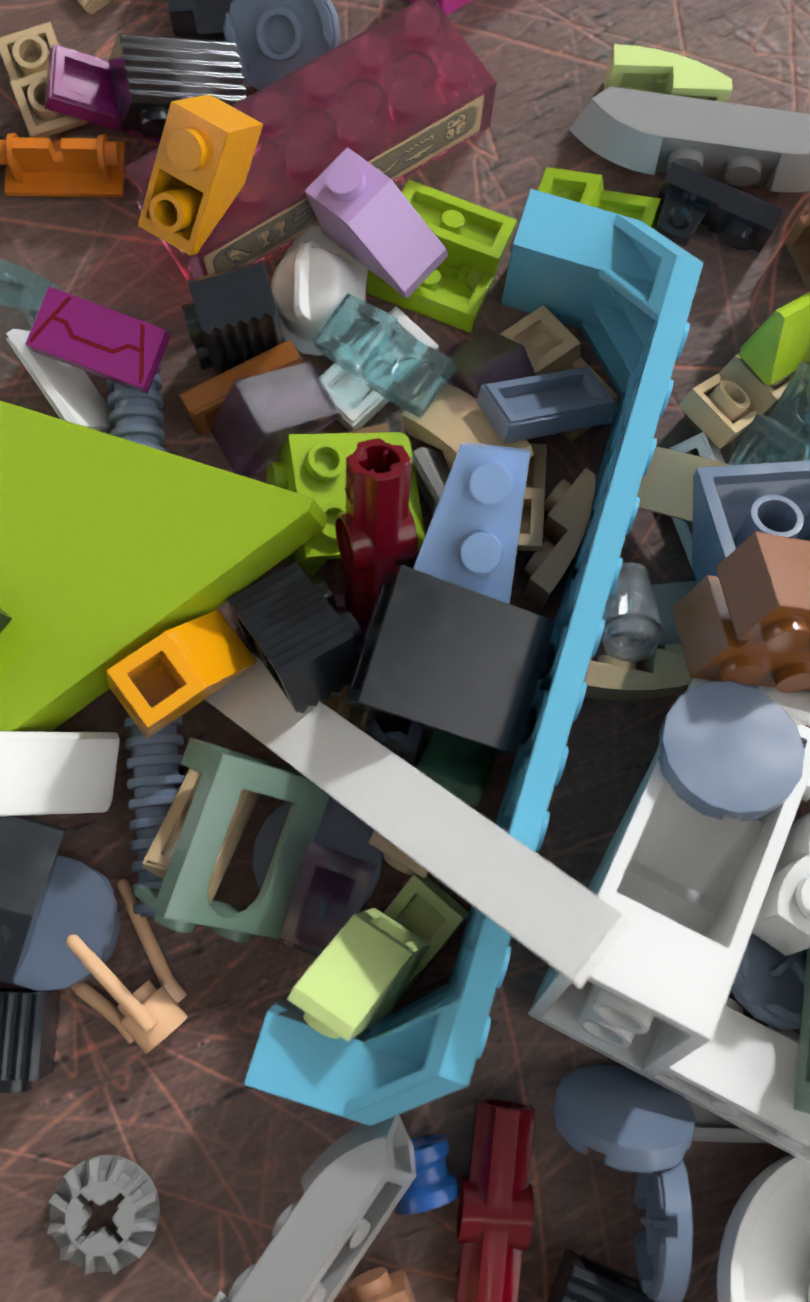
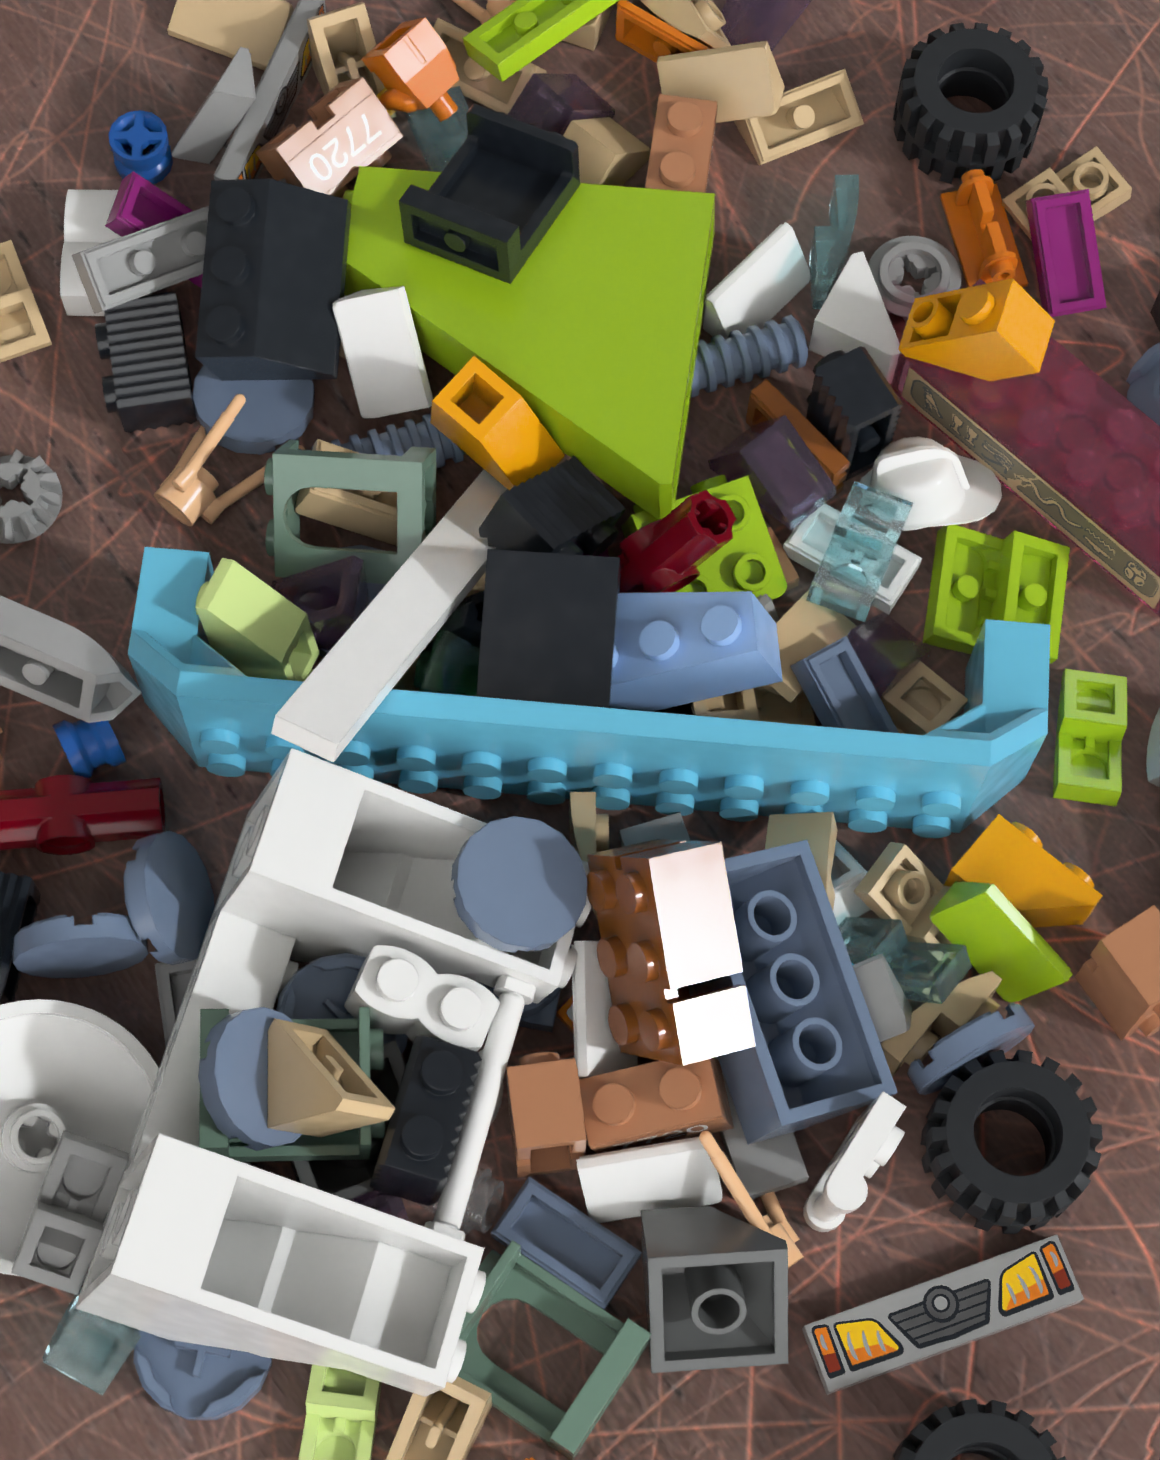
camera: 80 degrees right, 10 degrees down
(69, 231) = (923, 260): none -> light grey gear
(98, 340) = (797, 297): magenta tile -> none
(139, 290) = (856, 318): none -> white slope
(162, 69) = (1090, 305): black brick -> none
(374, 222) = (990, 509): lavender slope -> none
(632, 616) = (646, 817): clear cone -> none
(697, 199) = (1121, 821): black hinge -> none
(732, 305) = (1027, 875): none -> light orange slope

